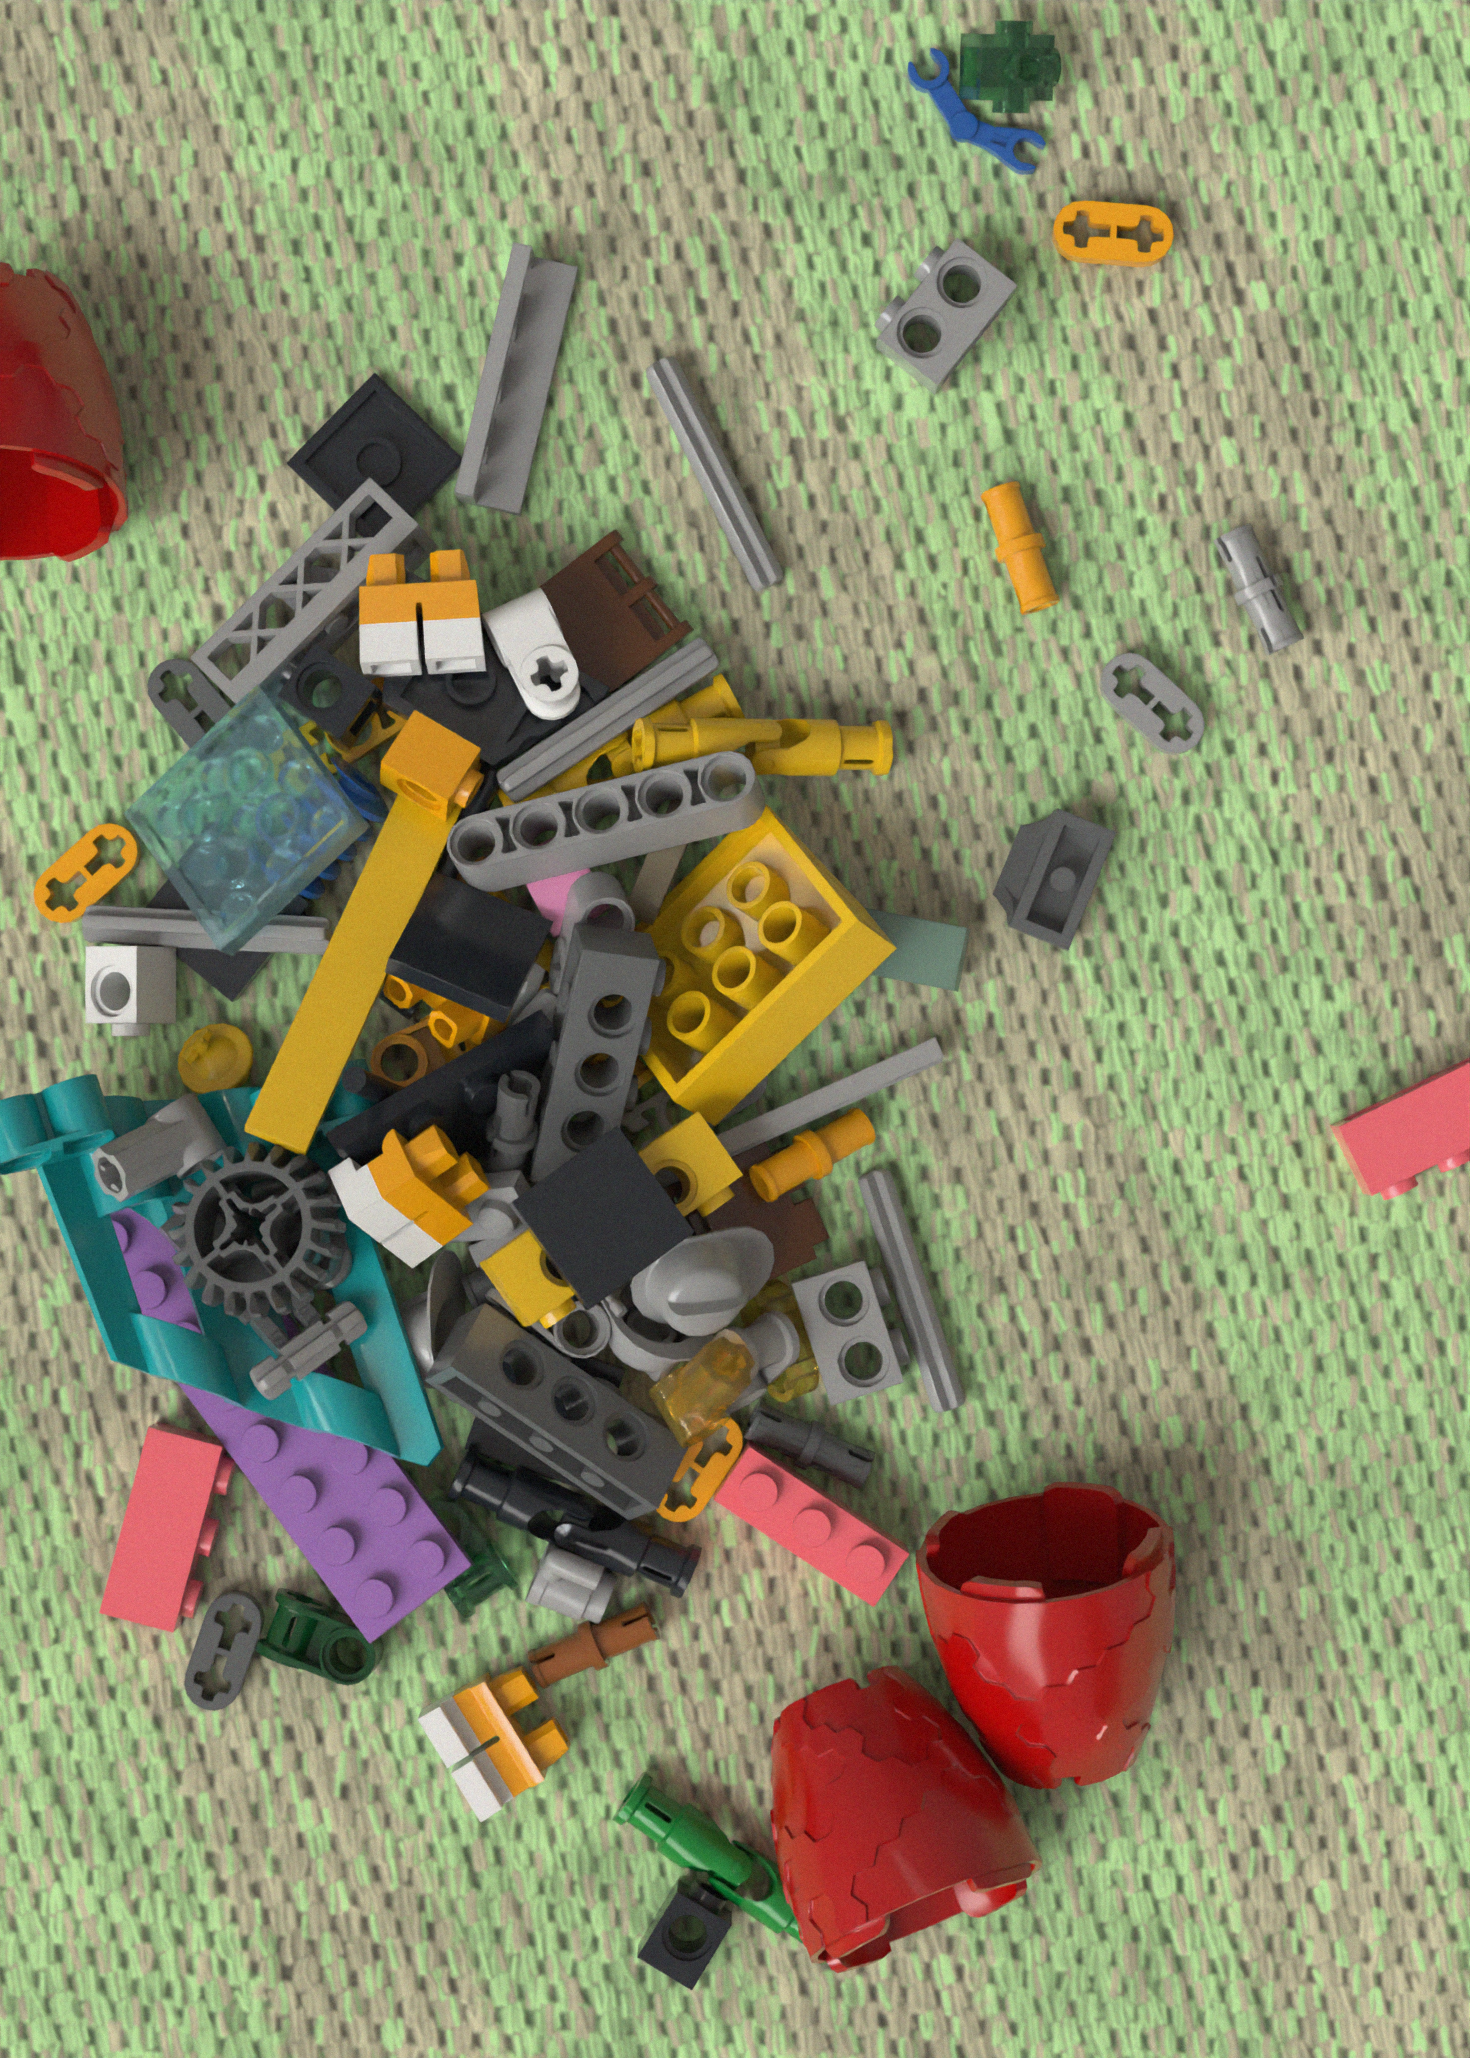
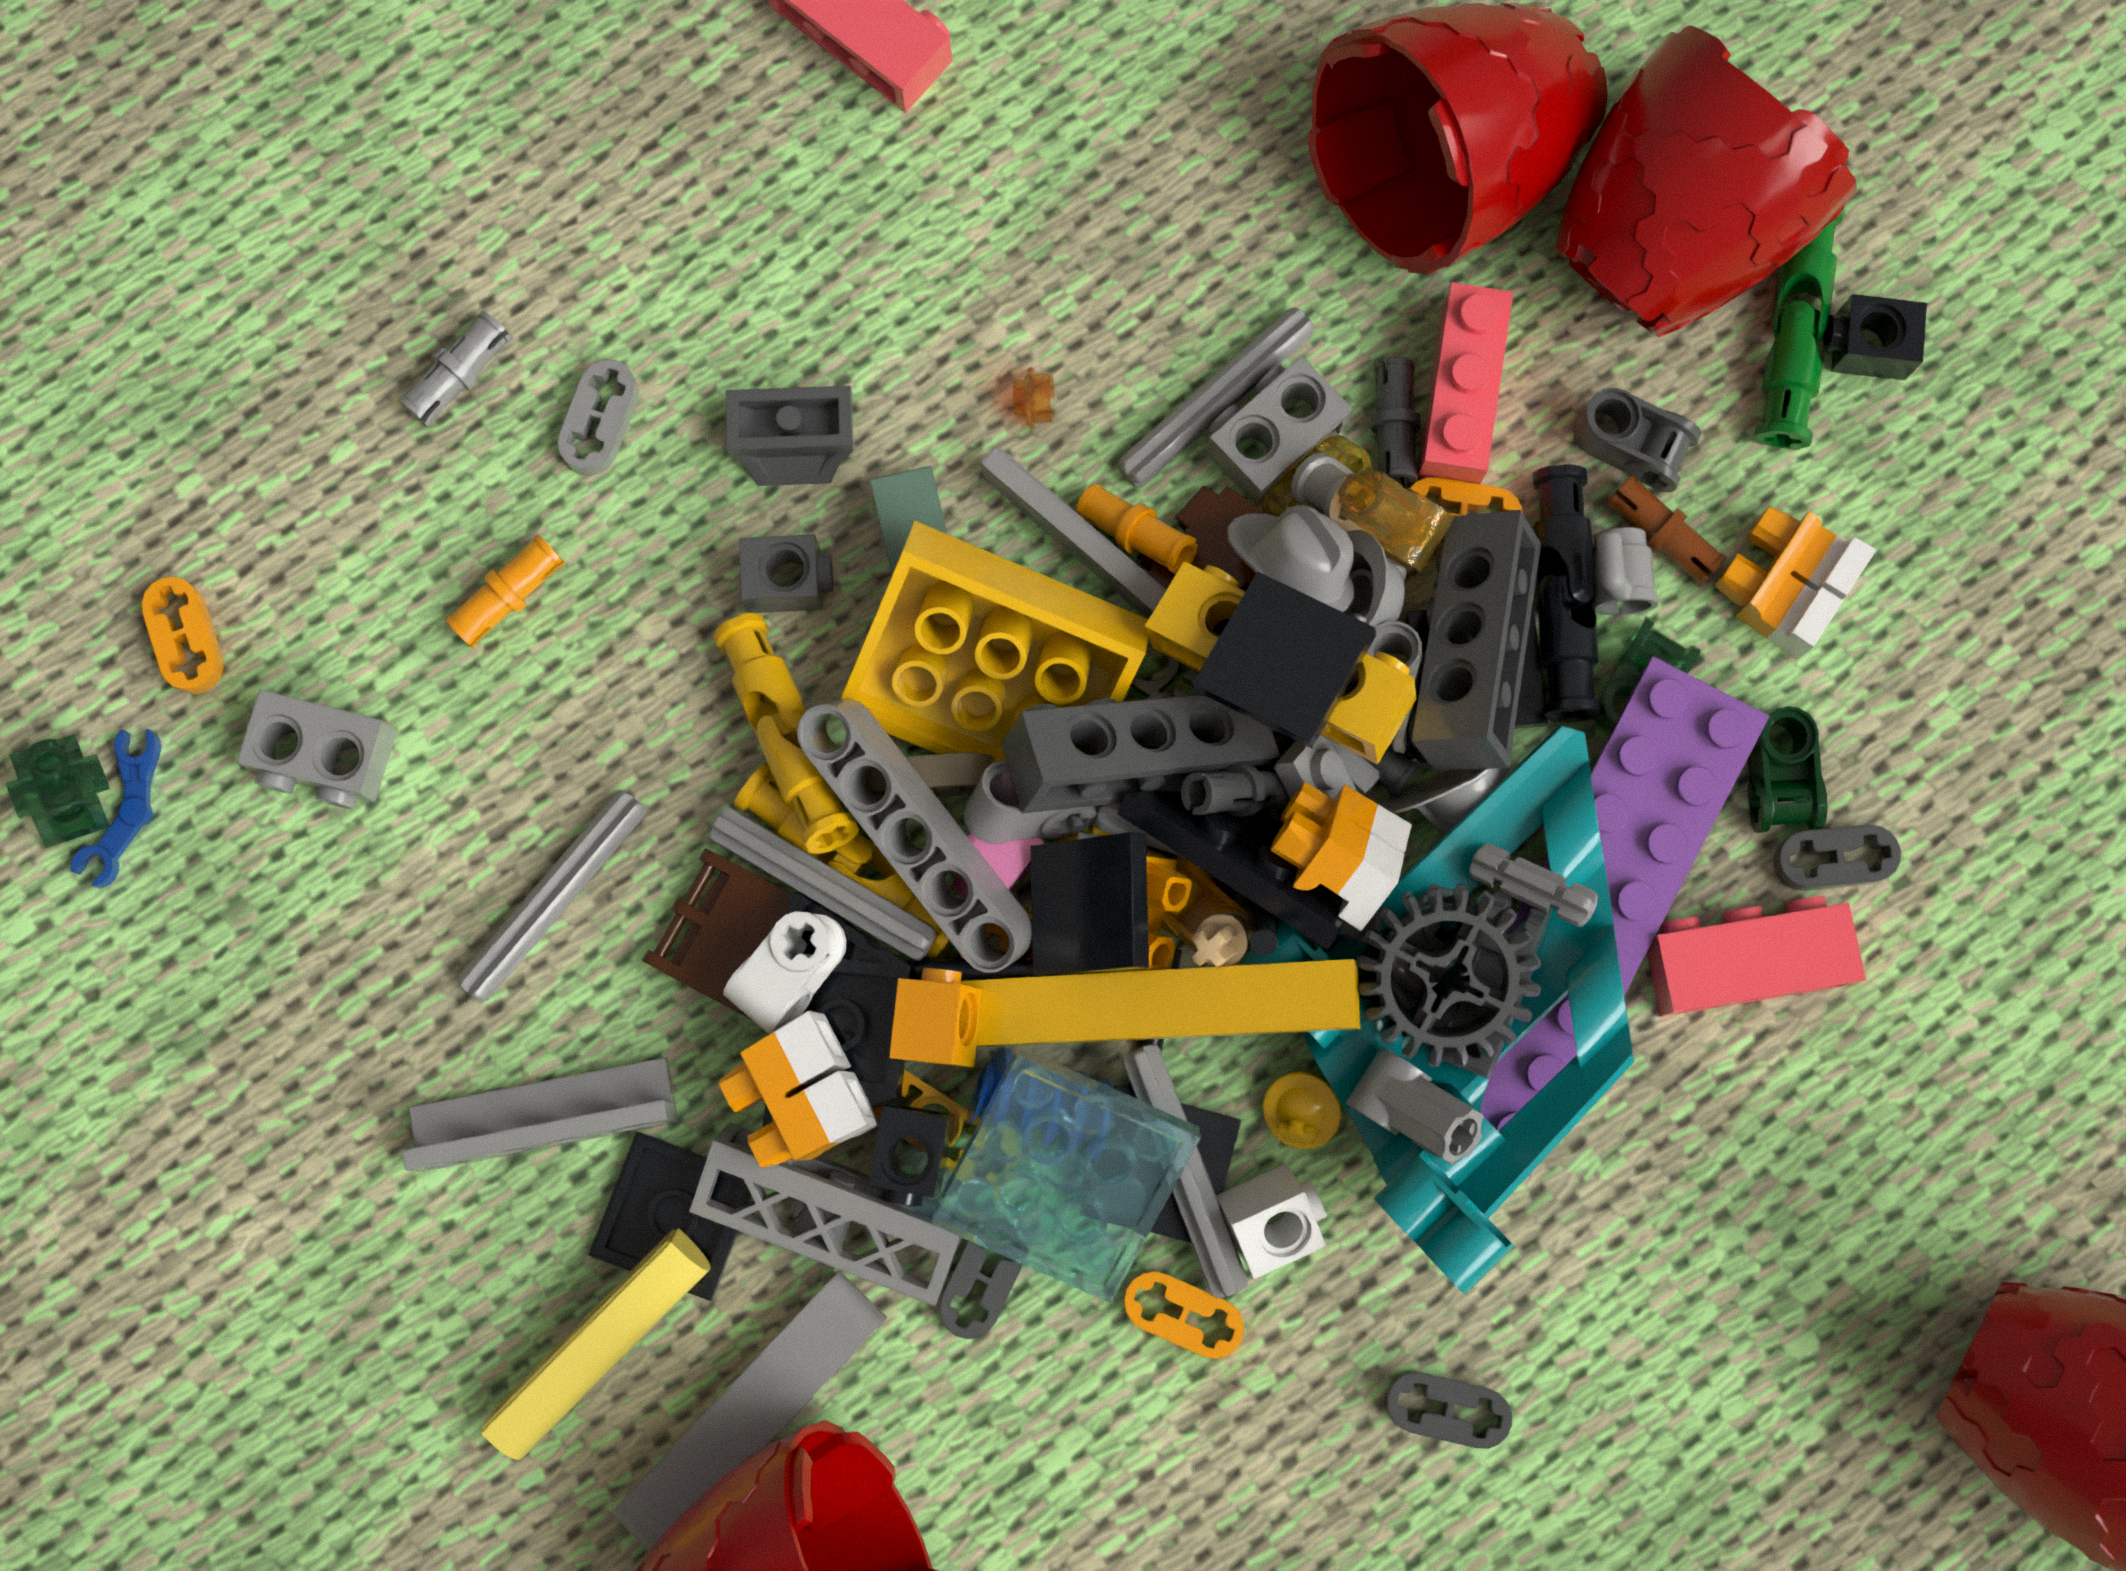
camera: 115 degrees left, 10 degrees down
(172, 460) = (753, 1407): none -> light grey beam
(291, 347) = (596, 1345): none -> light yellow brick
(383, 1048) = (1221, 939): none -> tan axle
(681, 1667) = (1641, 437): none -> dark grey piece
(931, 786) = (760, 559): none -> dark grey brick
(986, 1118) = (1033, 396): none -> clear orange plate

